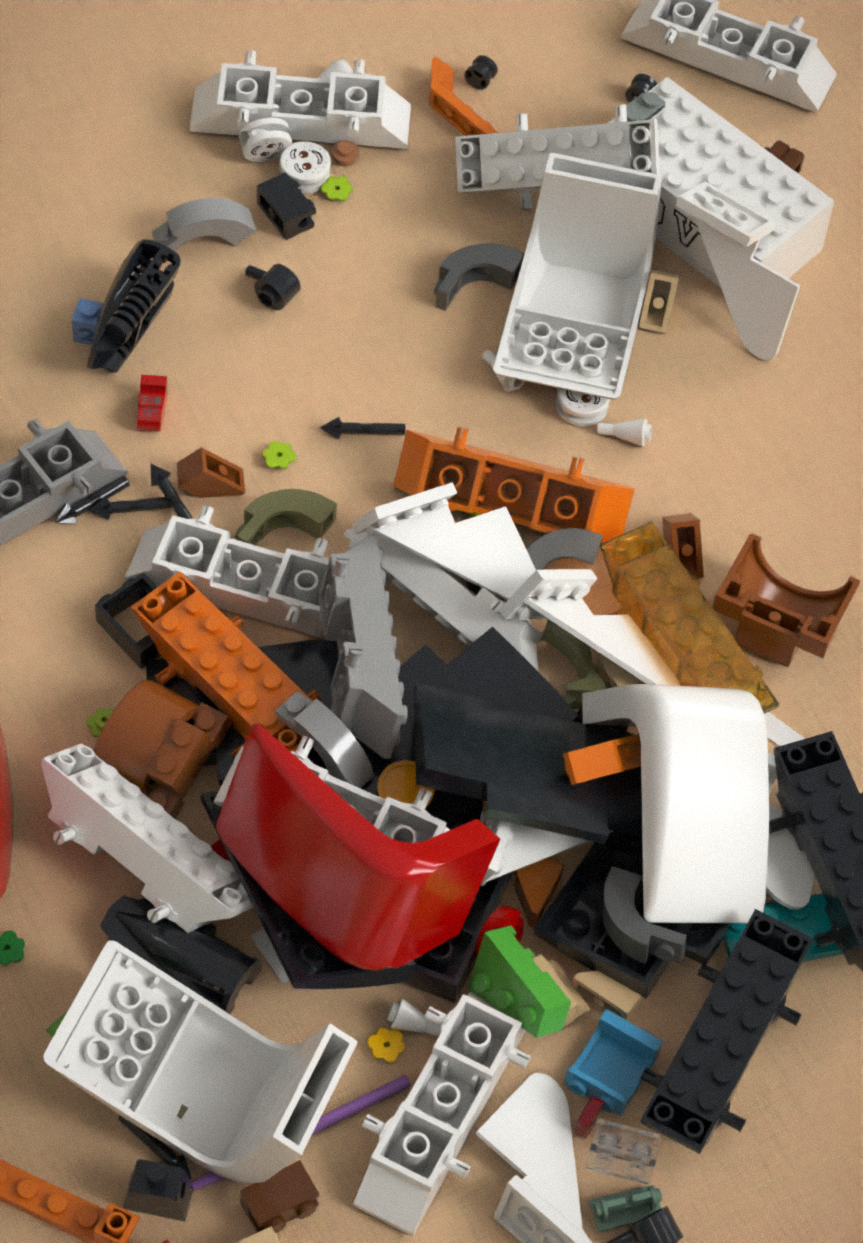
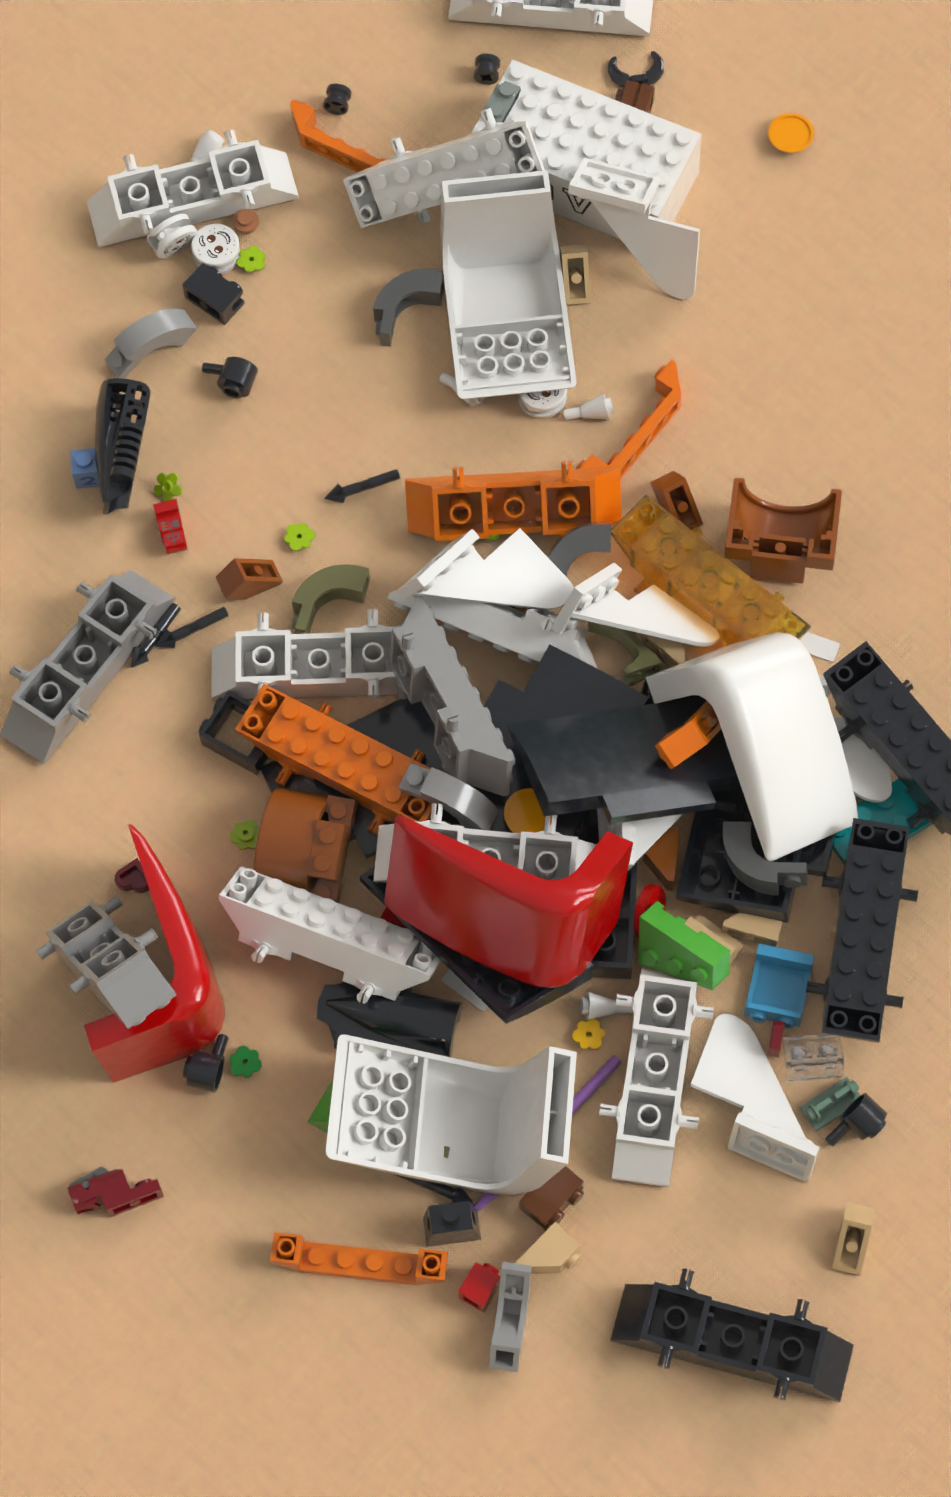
camera: 10 degrees left, 10 degrees up
(160, 477) = (206, 595): black piece -> none
(165, 365) = (167, 486): none -> lime plant
(683, 464) = (667, 385): none -> orange slope
(807, 148) = (650, 77): none -> black piece

